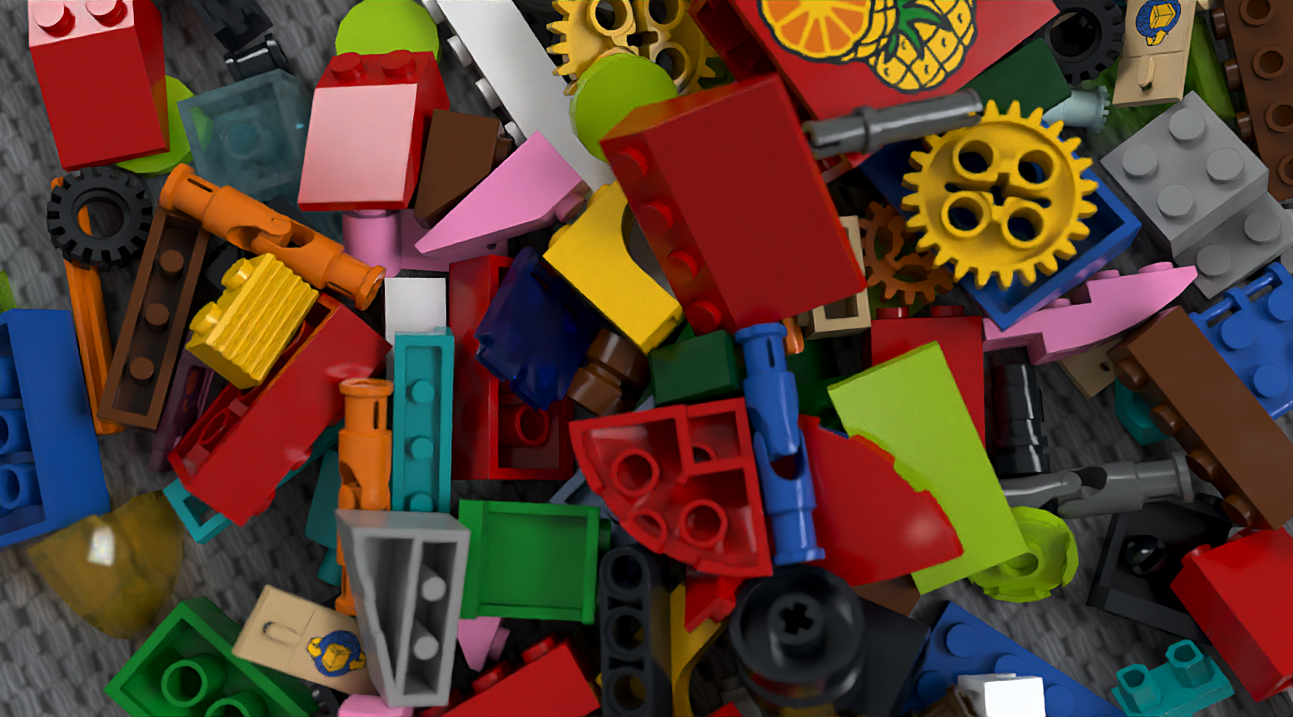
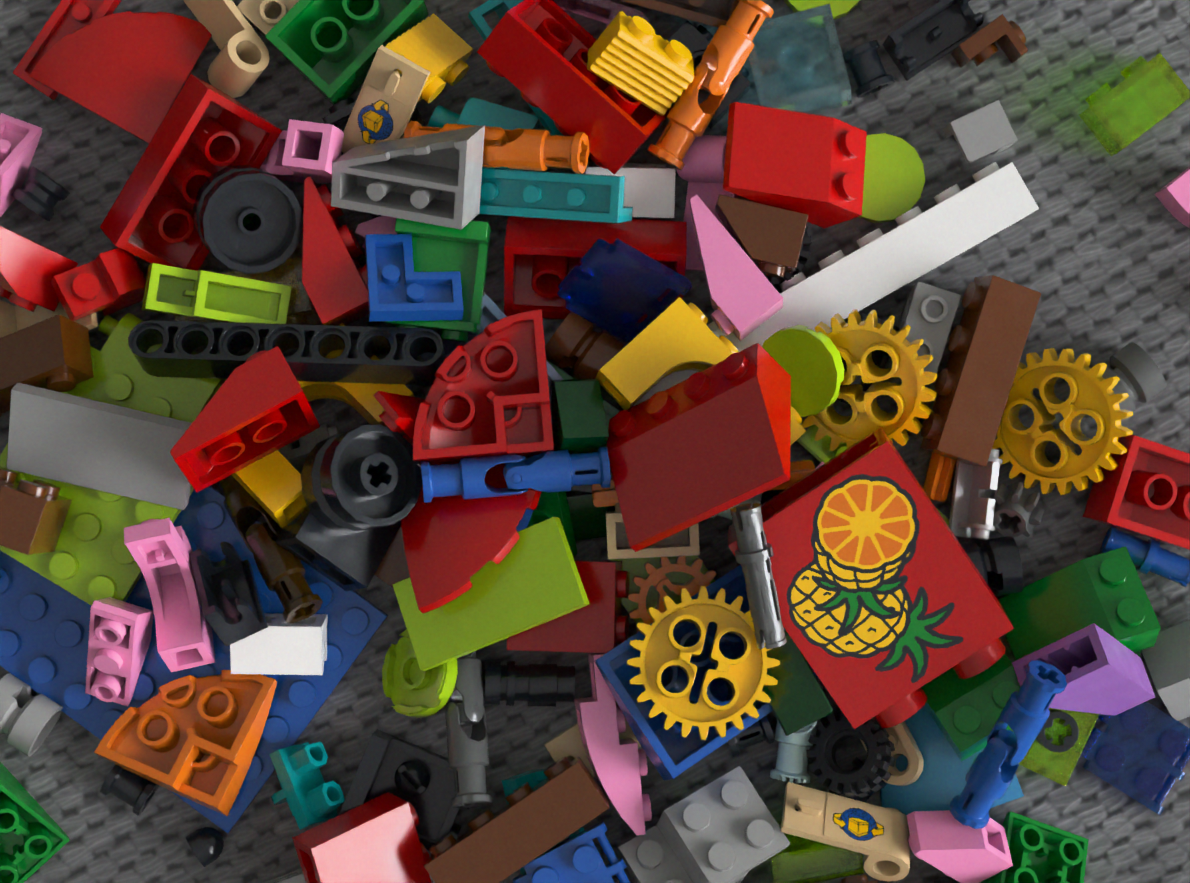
camera: 100 degrees right, 5 degrees up
(242, 578) = (436, 50): none -> yellow brick
(557, 601) = (401, 293): none -> blue plate

